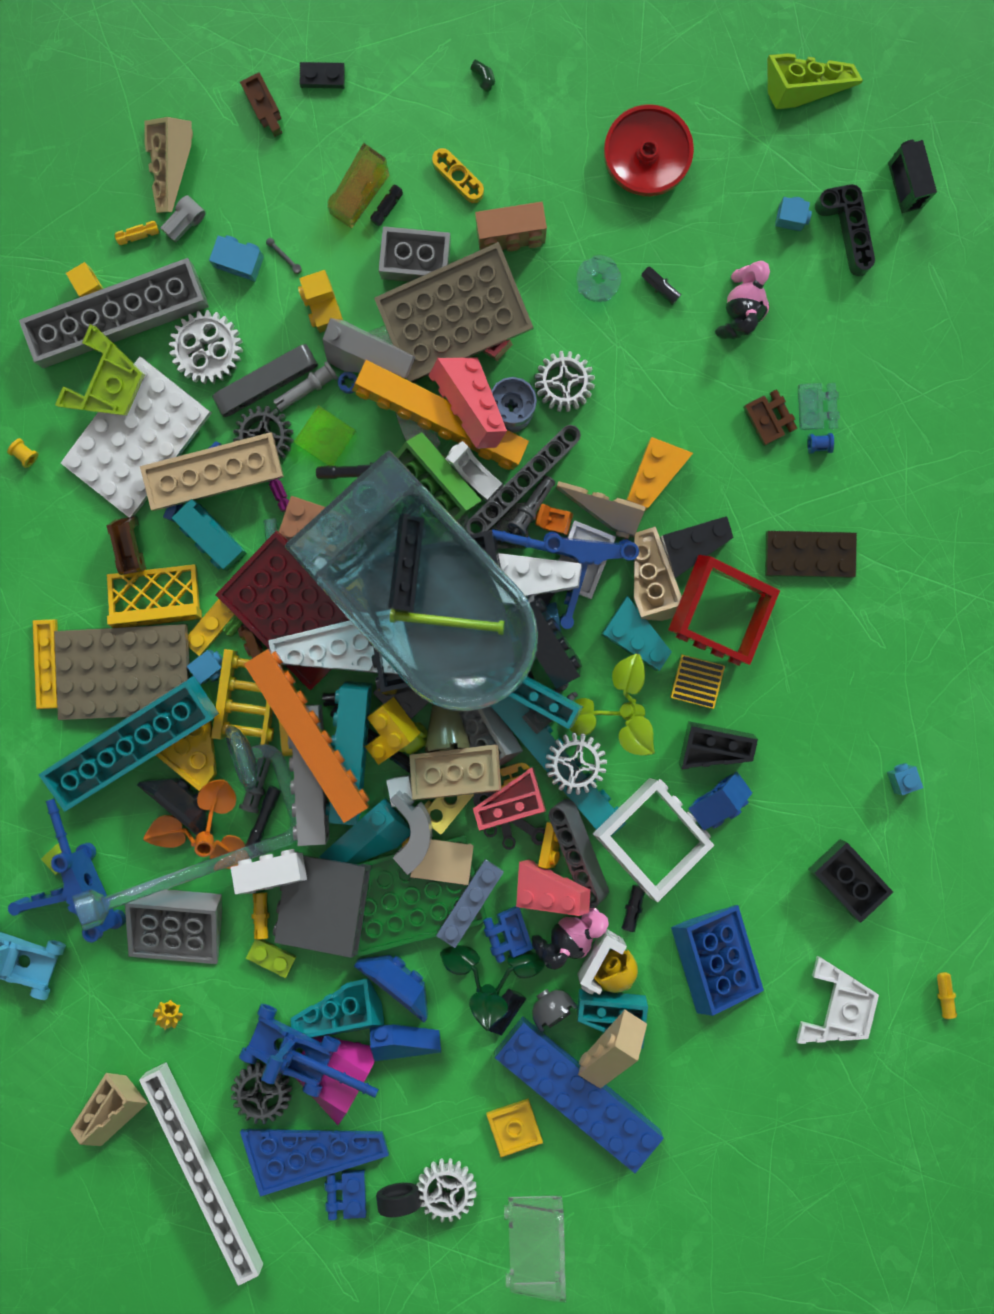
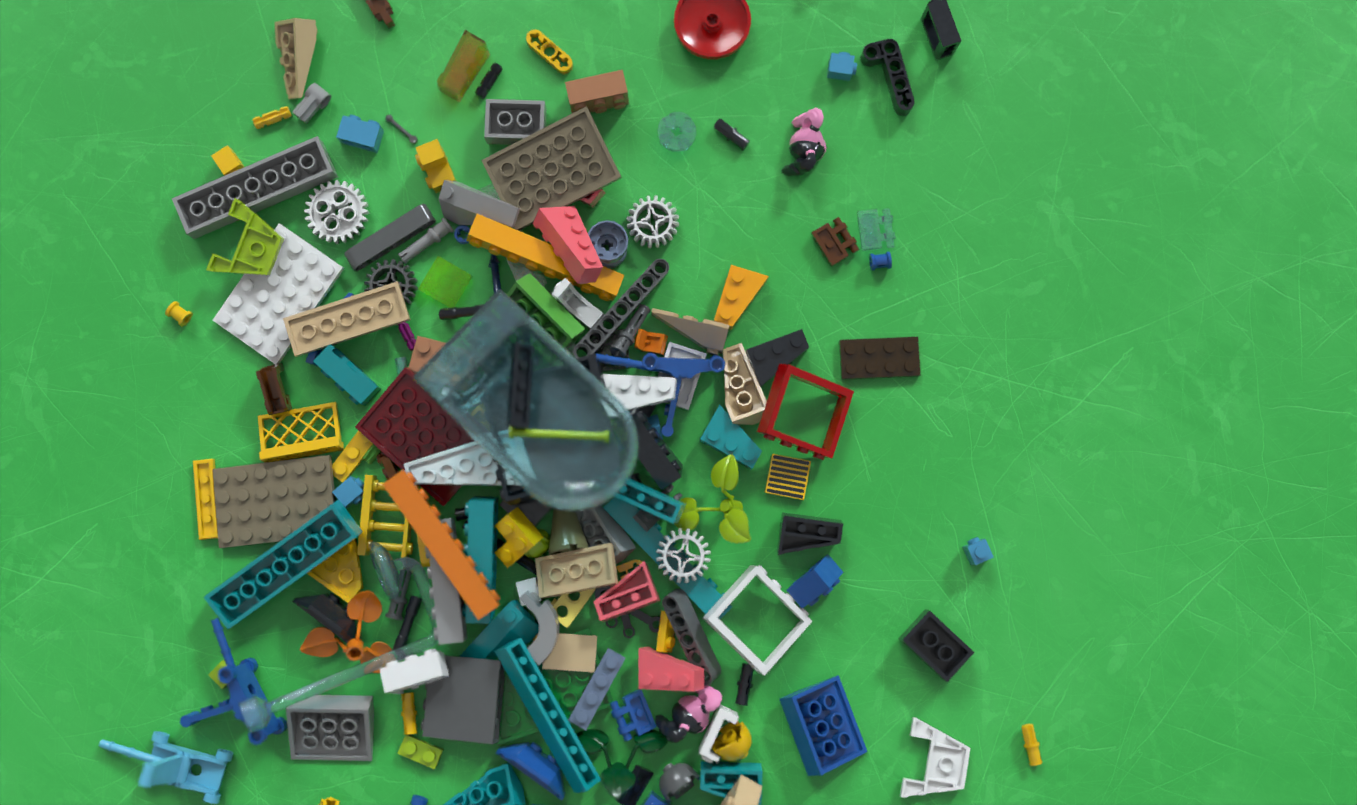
camera: 10 degrees left, 5 degrees down
(382, 430) = (493, 264): none -> dark blue piece
(414, 929) = (548, 715): none -> teal brick

